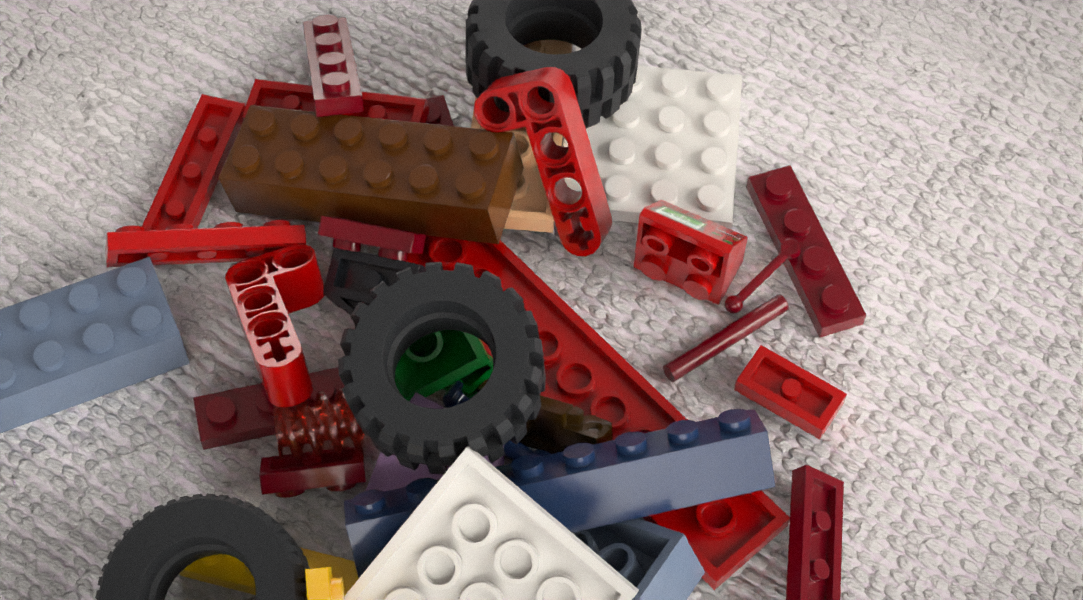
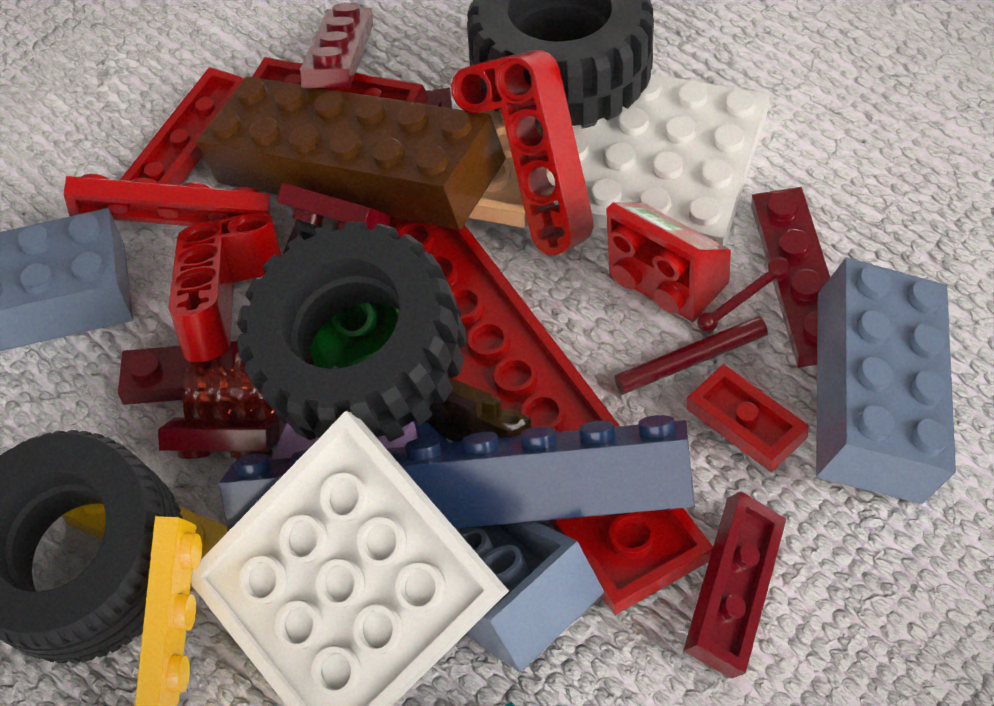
camera: 20 degrees right, 5 degrees down
(905, 346) = (884, 382): none -> sand blue brick

